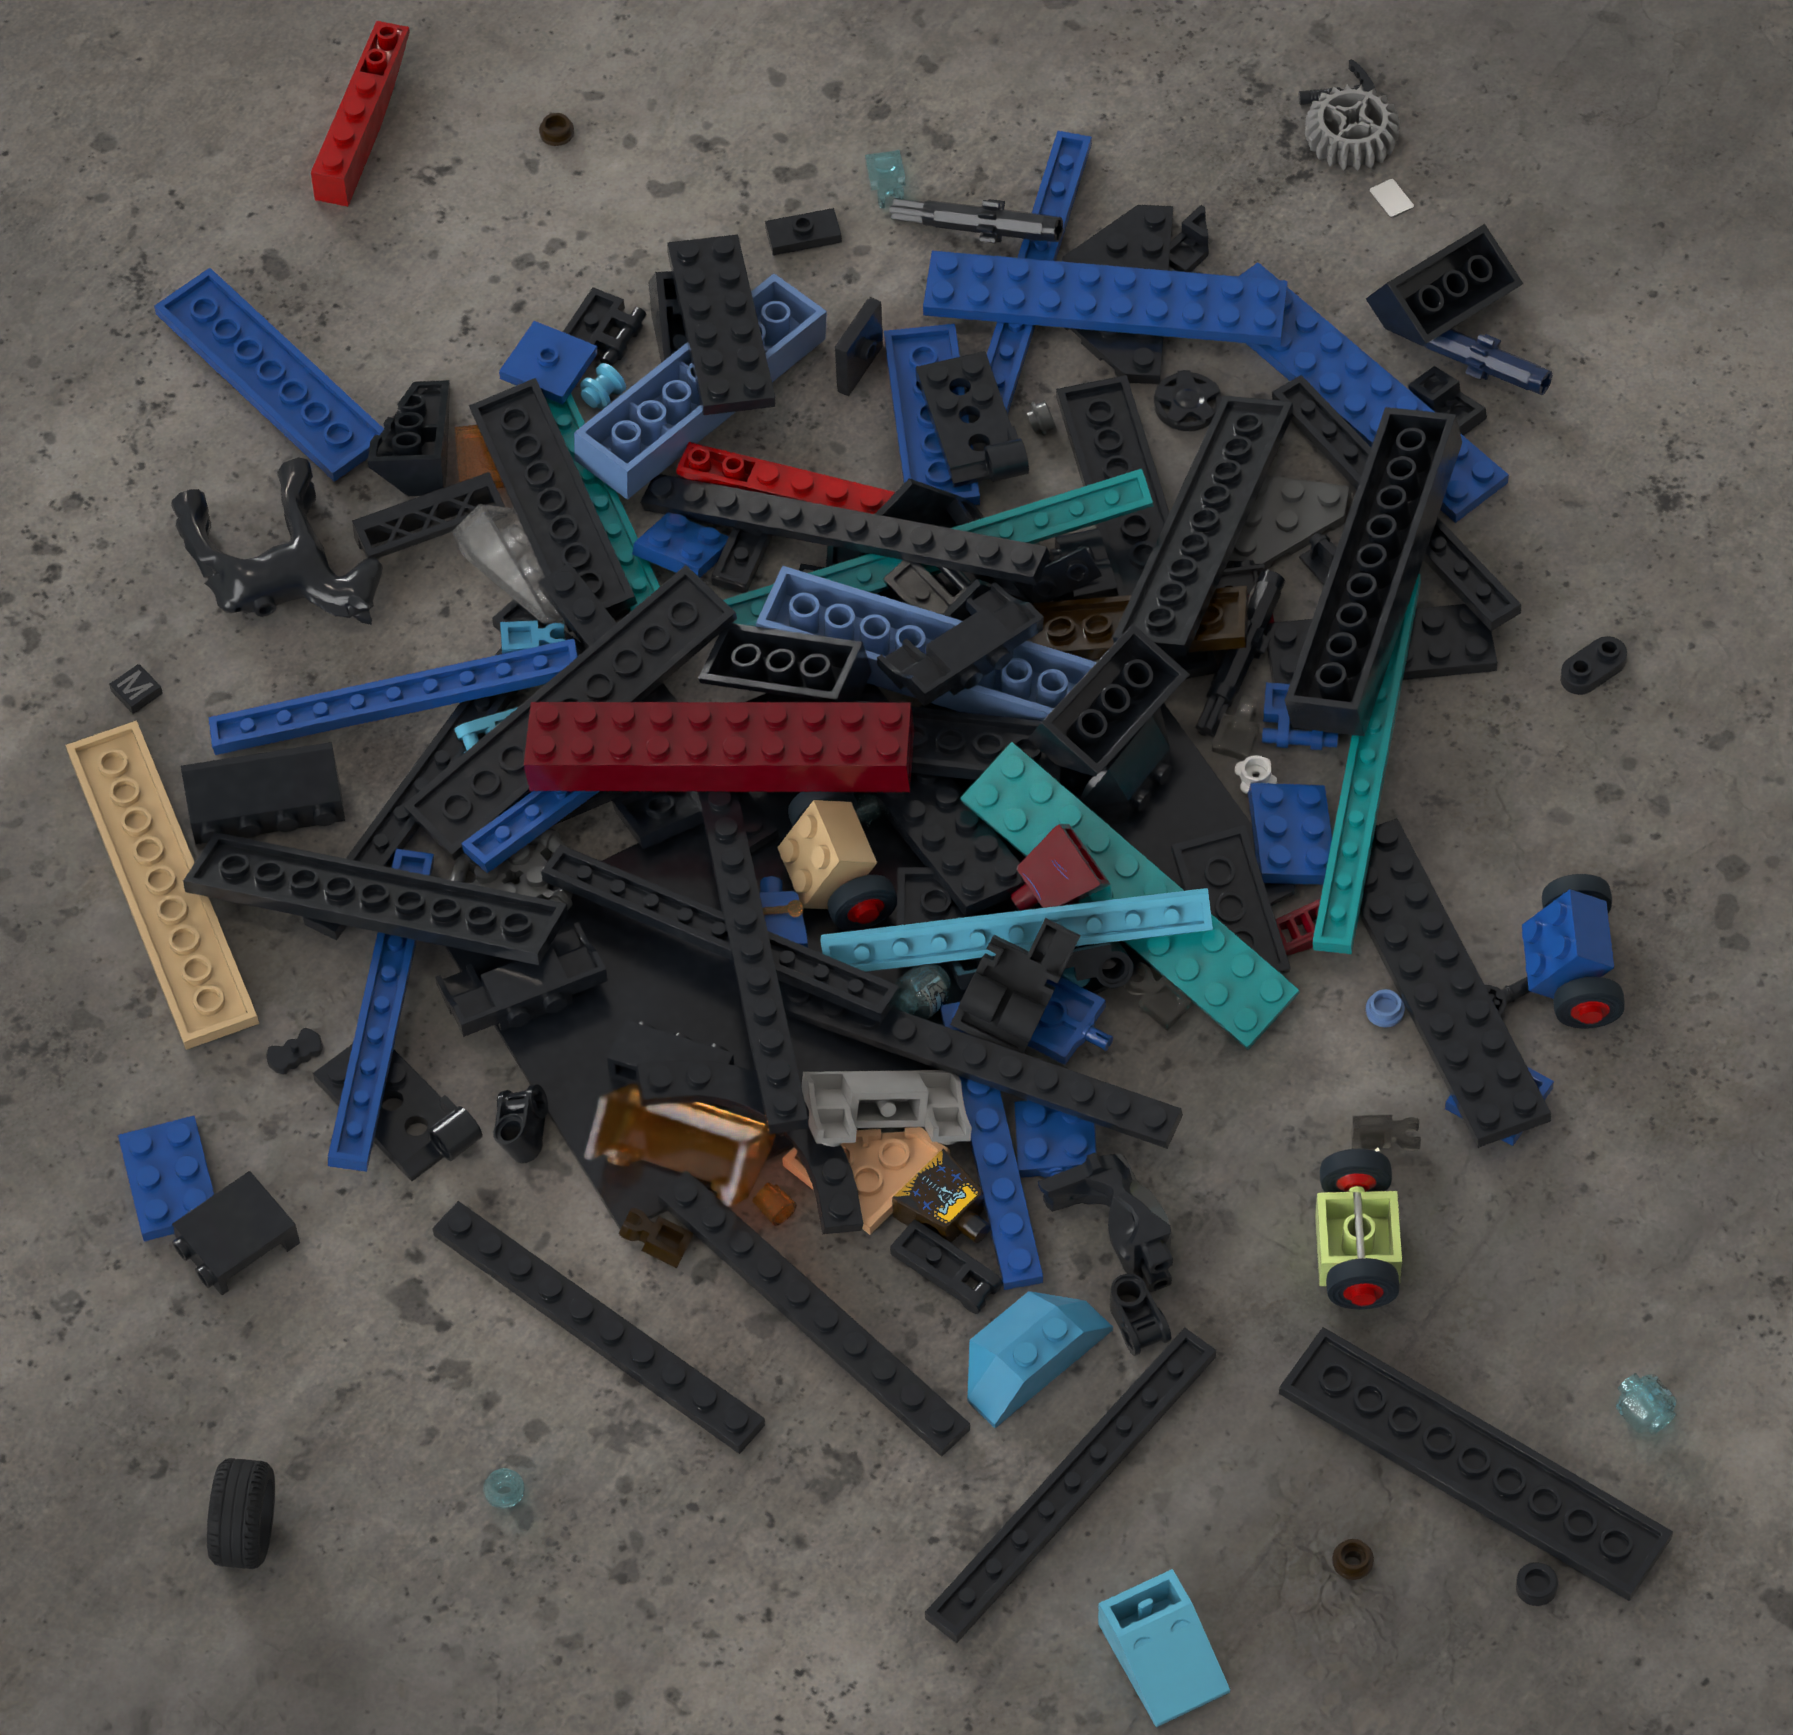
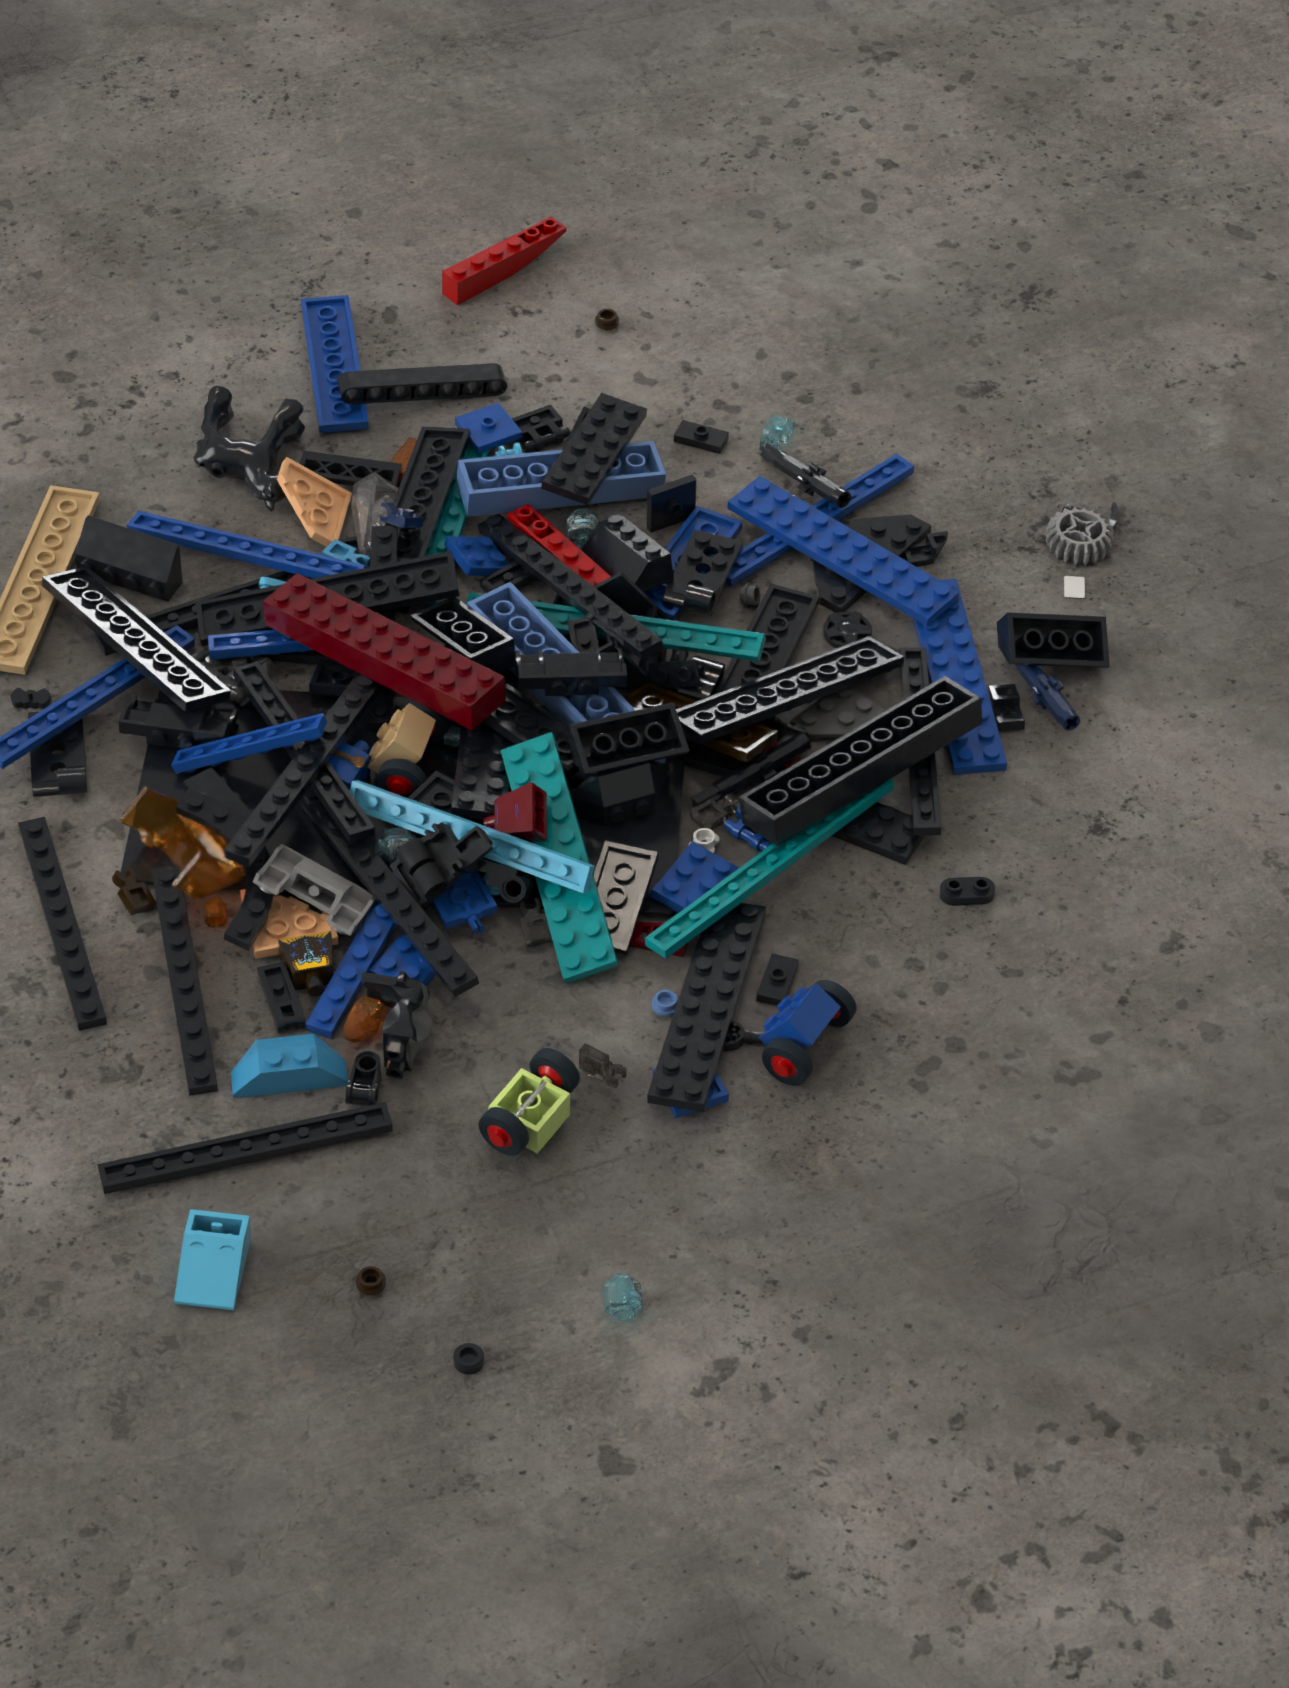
camera: 30 degrees right, 10 degrees down
(135, 688) = (116, 479): black tile -> none
(413, 345) = (422, 383): none -> black beam
(415, 441) = (379, 434): black wedge -> none
(428, 581) = (316, 501): none -> light nougat plate
(521, 1122) = (113, 794): black piece -> none
(568, 549) = (402, 518): none -> dark blue plate
(651, 962) = (249, 743): none -> blue plate
(773, 436) = (580, 526): none -> head
(868, 444) = (623, 547): none -> black slope
(1069, 1237) = (364, 1019): none -> clear orange rock
(1476, 1463) = (492, 1274): black plate -> none
(1481, 903) = (777, 979): none -> black plate

